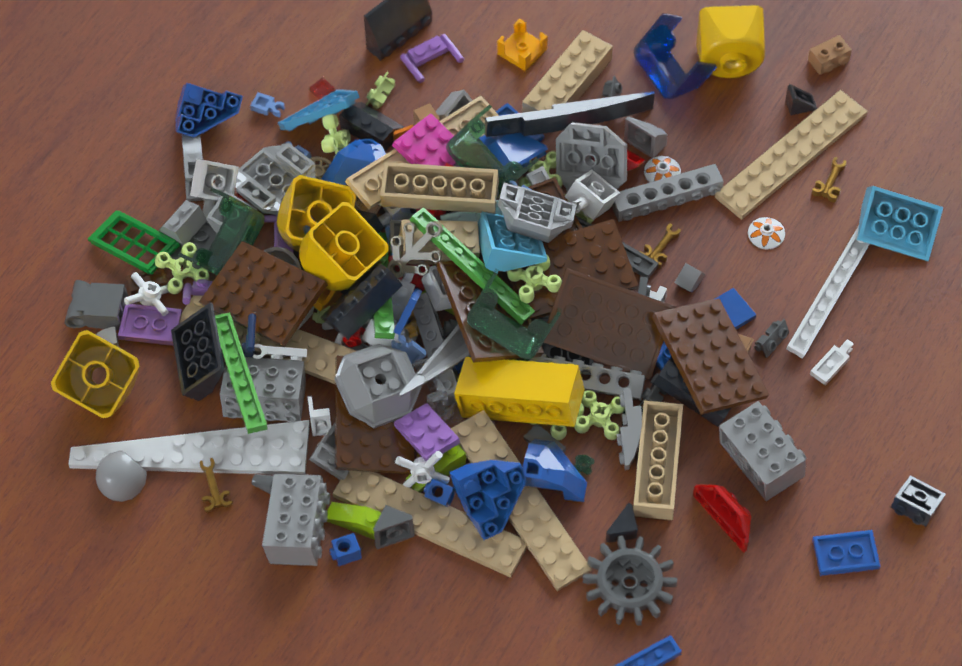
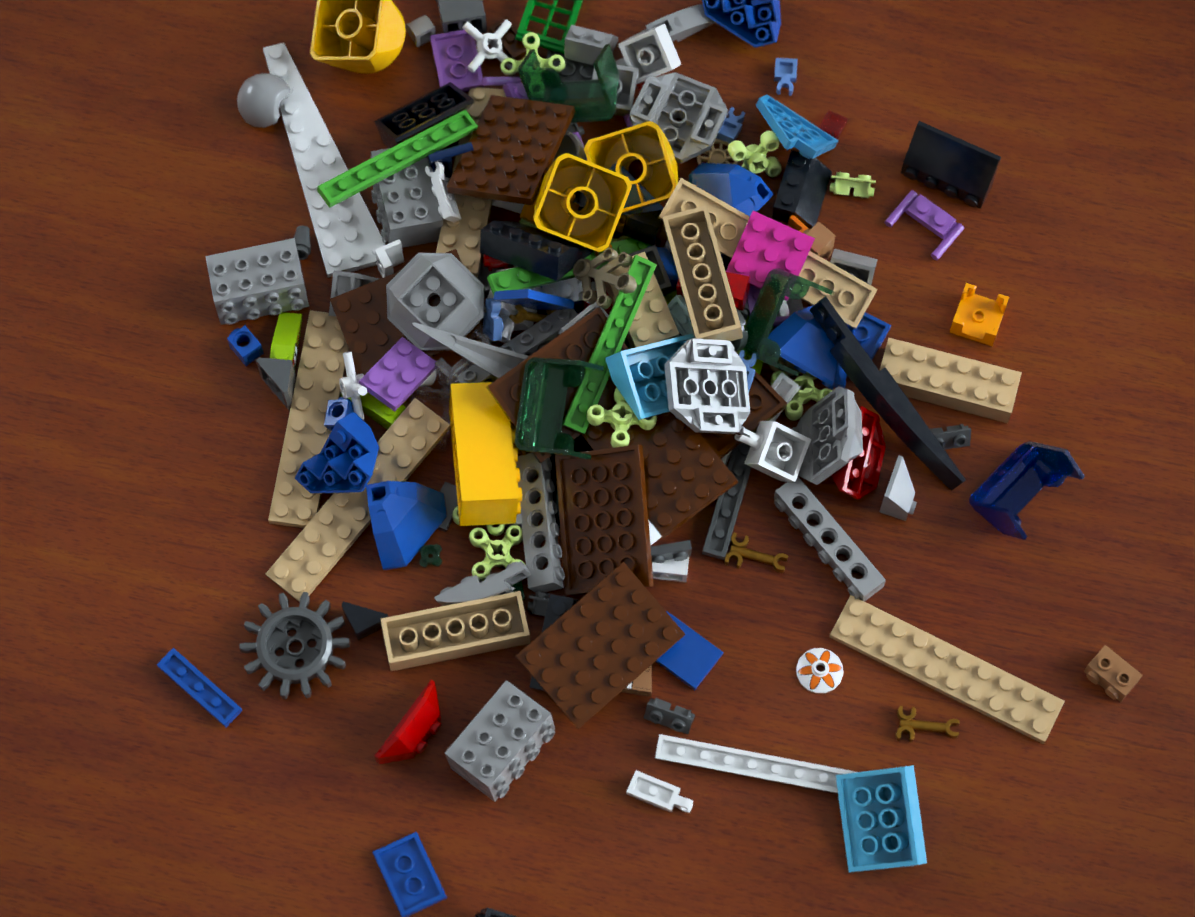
camera: 70 degrees right, 10 degrees up
(216, 499) = (268, 200): pearl gold bar -> none
(654, 172) = (864, 537): white dish -> none
(689, 278) = (719, 599): light grey brick -> none
(731, 39) = (1066, 544): yellow piece -> none
(799, 101) = (1027, 656): black slope -> none

